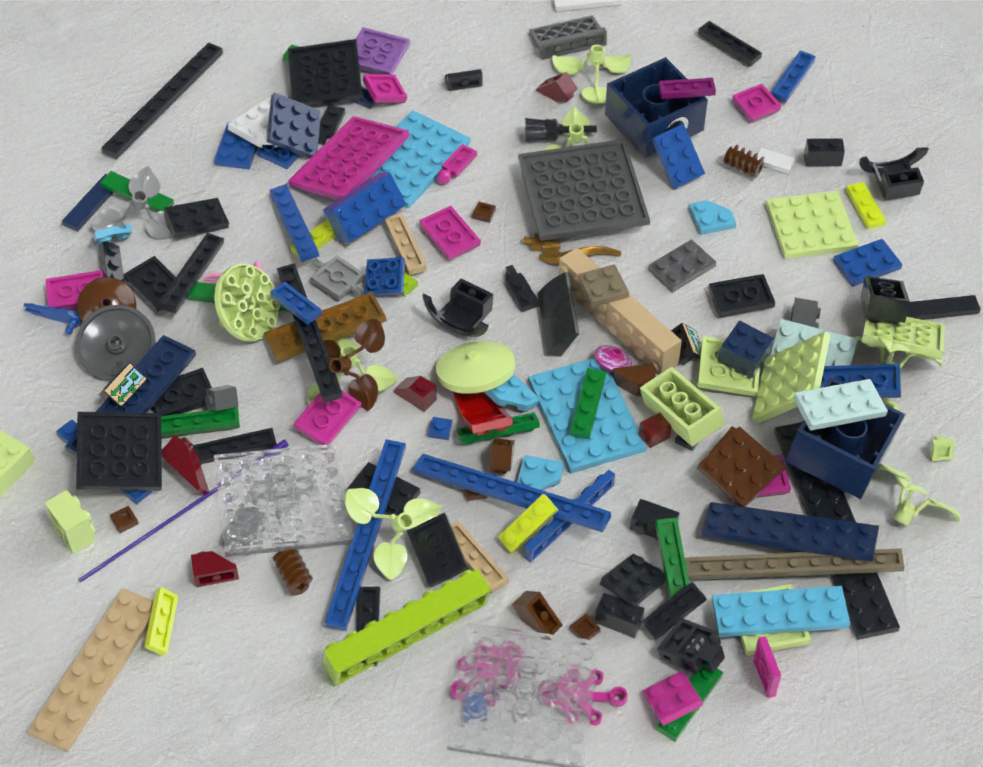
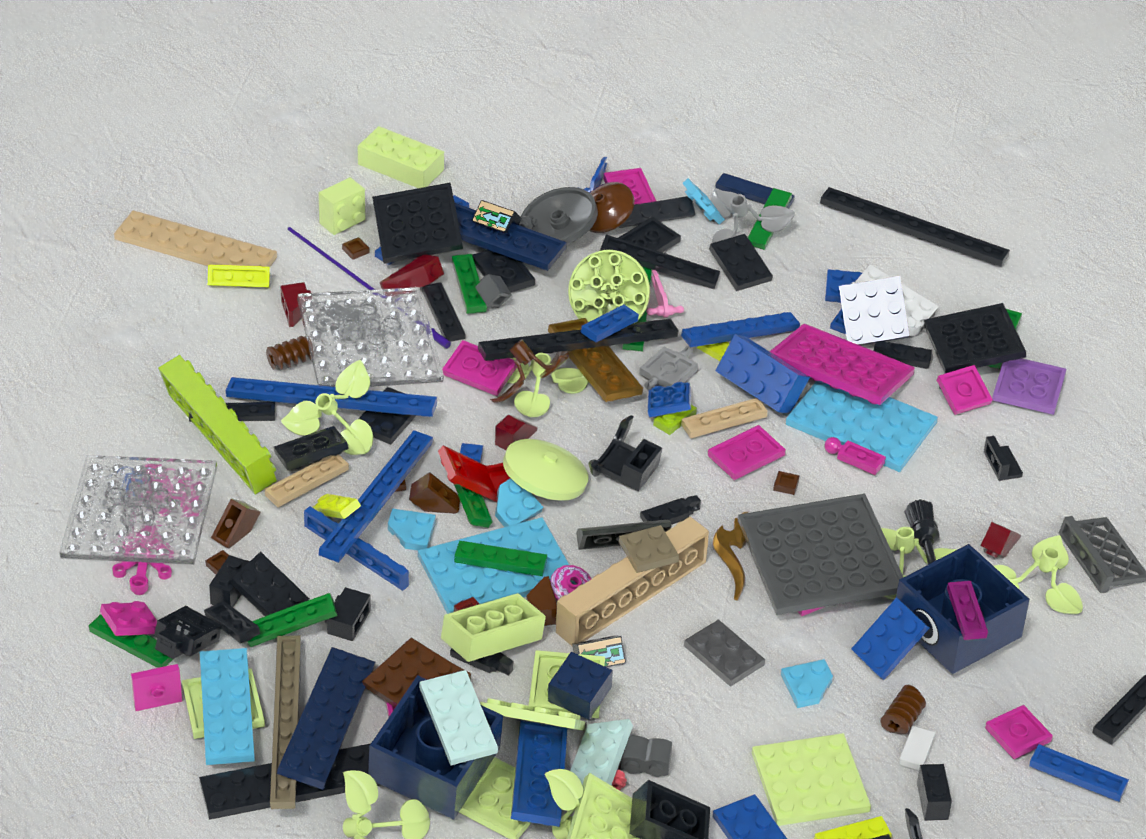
camera: 85 degrees right, 10 degrees down
(741, 295) = (679, 701): black plate -> none

